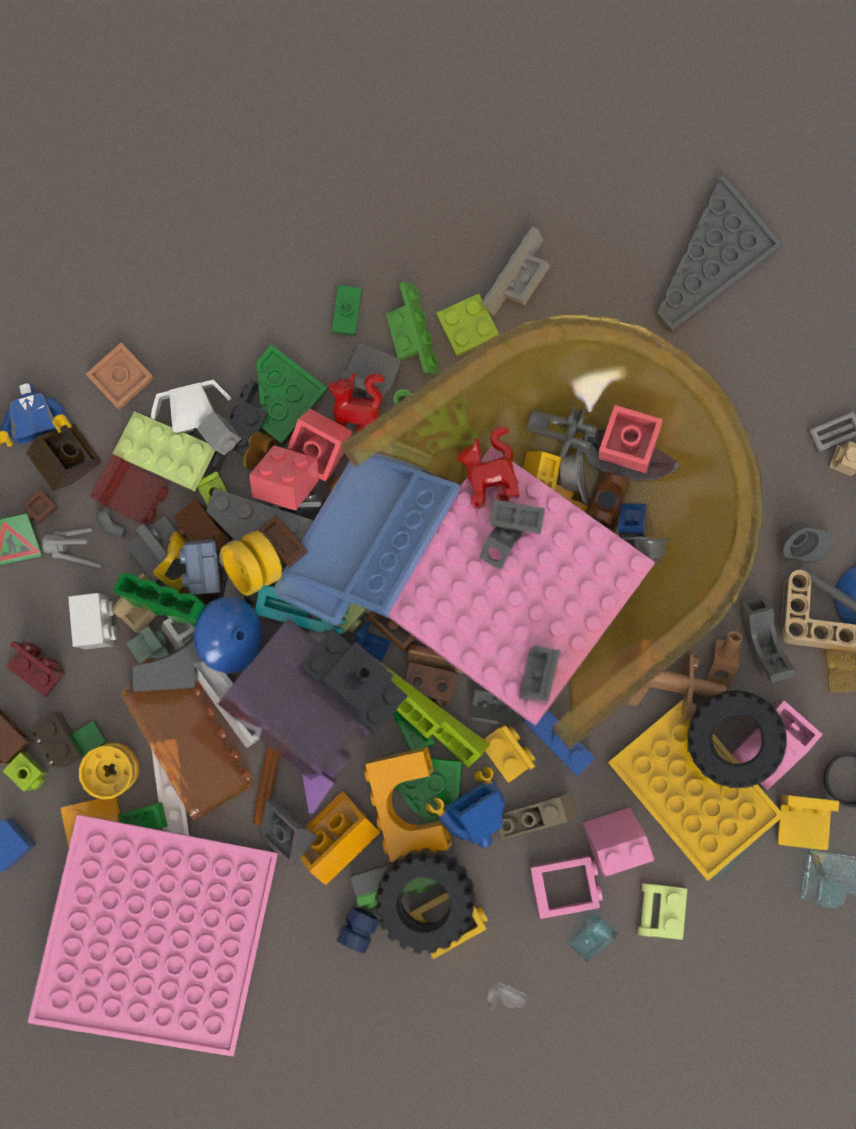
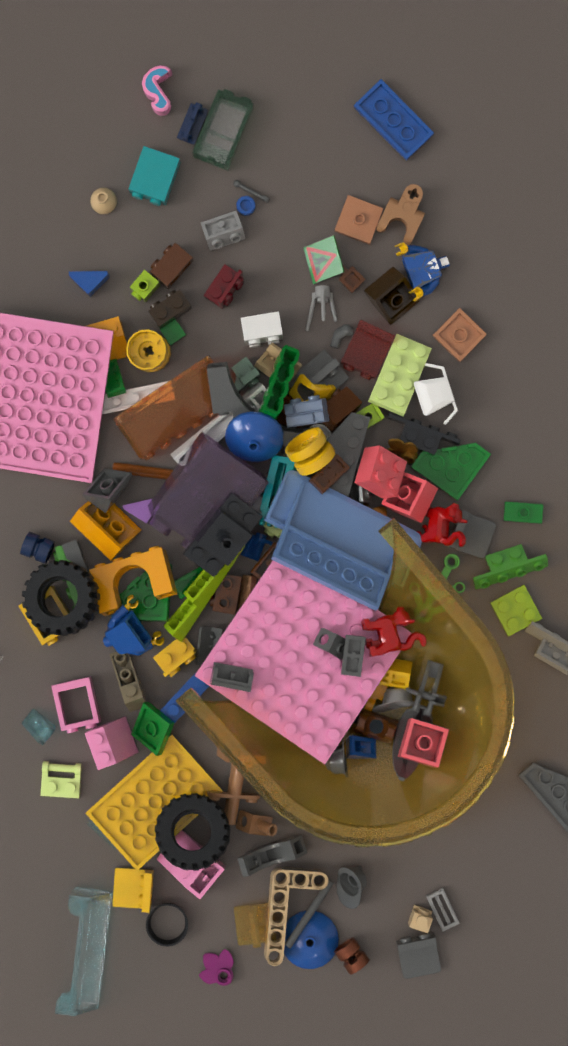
camera: 90 degrees right, 5 degrees up
(219, 433) = (413, 418): light grey brick -> none
(600, 786) = (152, 728): none -> green plate

